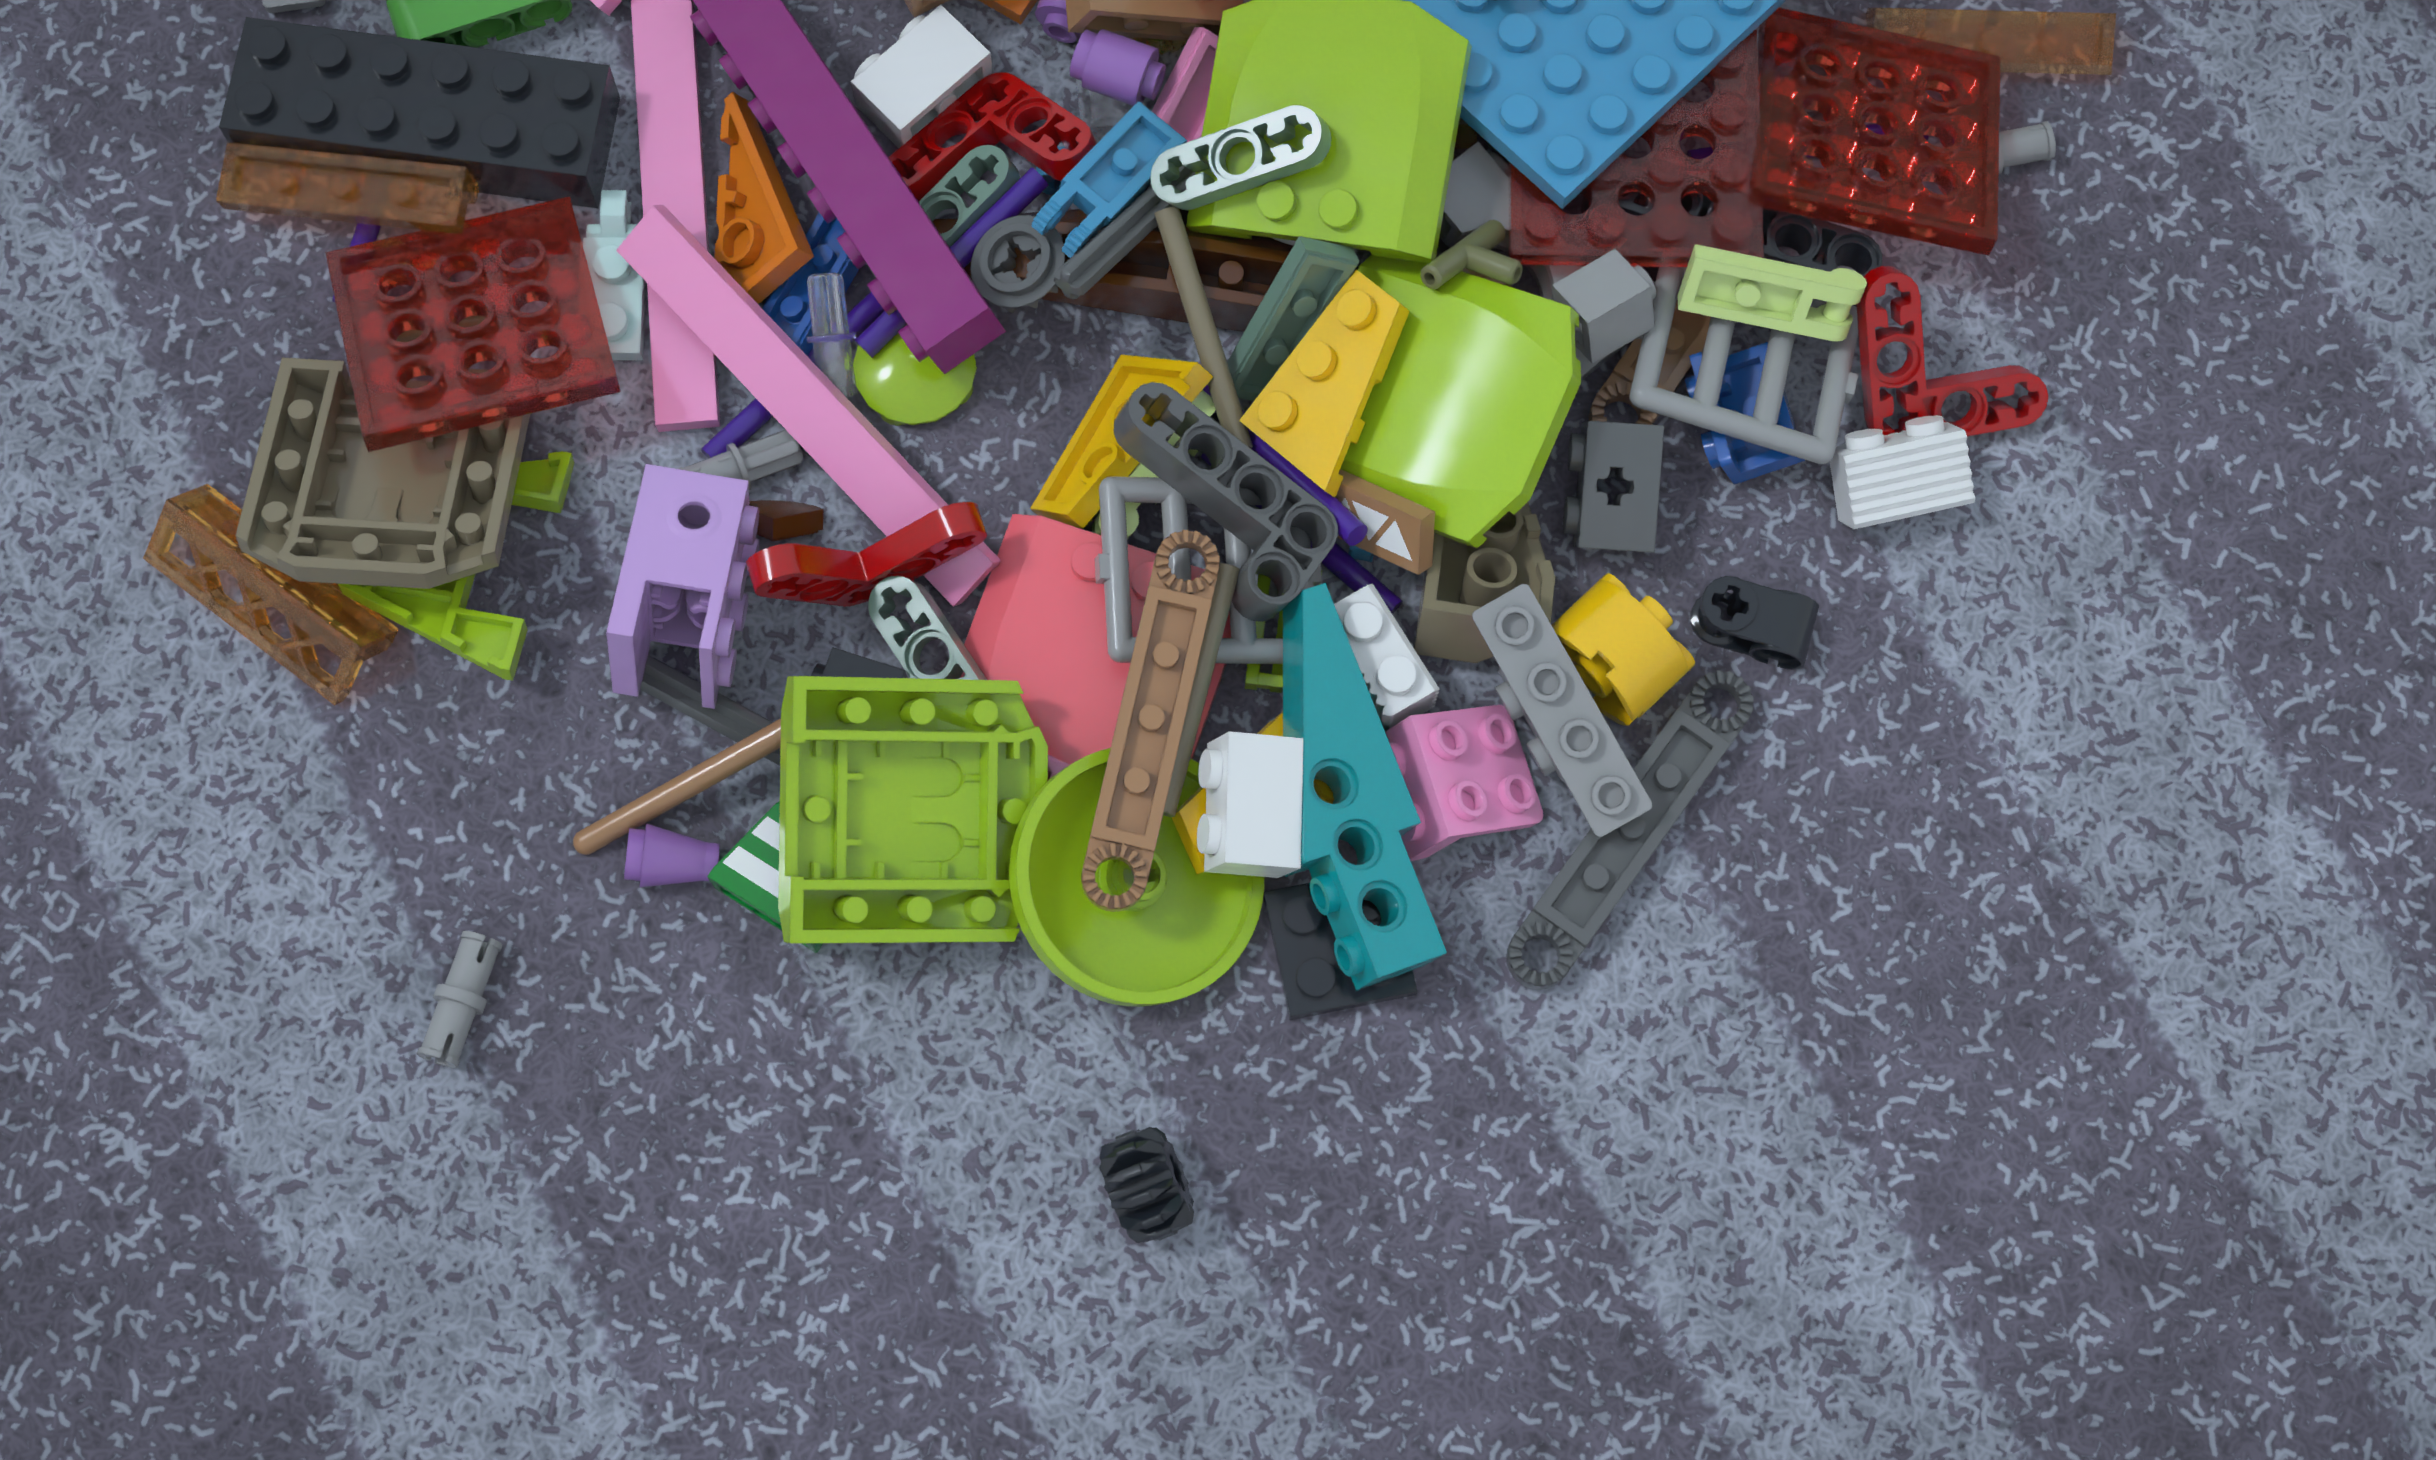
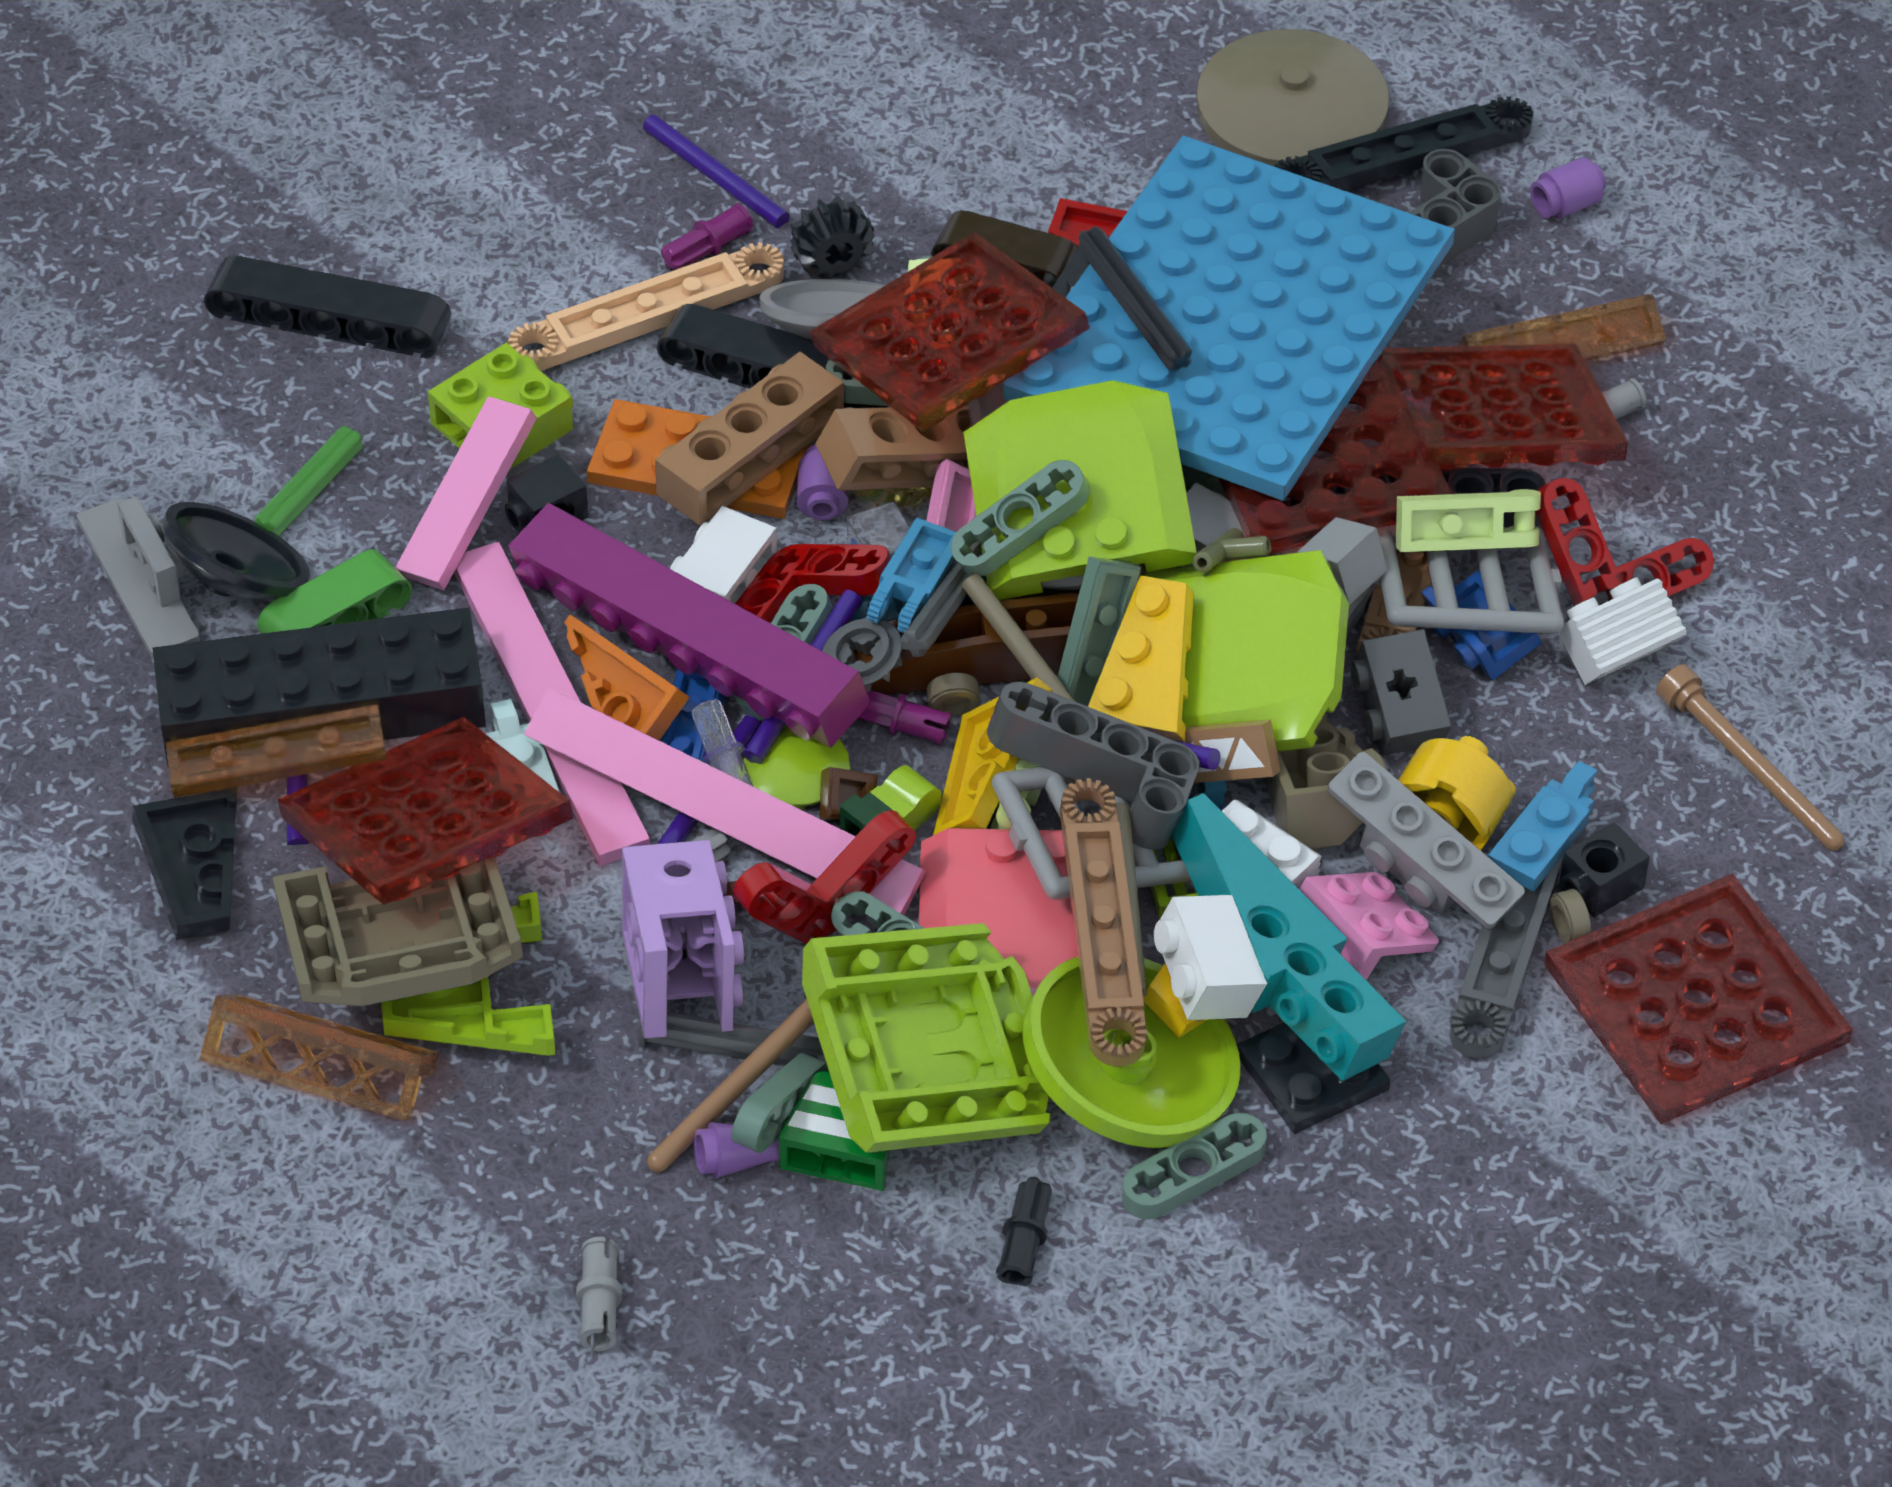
camera: 15 degrees left, 25 degrees down
(218, 294) = (191, 858): none -> black wing
(714, 834) = (771, 1105): none -> sand green beam
(945, 1061) = (1024, 1232): none -> black axle
(951, 424) = (839, 786): none -> reddish brown tile
(993, 462) = (902, 791): none -> lime leg
(1053, 339) = (906, 716): none -> magenta axle
(1110, 1032) = (1204, 1146): none -> sand green beam
(1116, 329) = (954, 693): none -> dark tan tile
(1117, 67) = (887, 503): medium lavender brick -> none
(1146, 1185) = (1230, 1257): black gear -> none
(1698, 841) = (1569, 915): none -> dark tan tile
(1710, 723) = (1546, 827): none -> dark azure hinge
(1762, 623) = (1547, 754): black piece -> none
(1779, 774) = (1604, 869): none -> black brick
(1892, 943) = (1717, 1067): none -> clear red piece
(1946, 572) = (1683, 690): none -> medium nougat piece

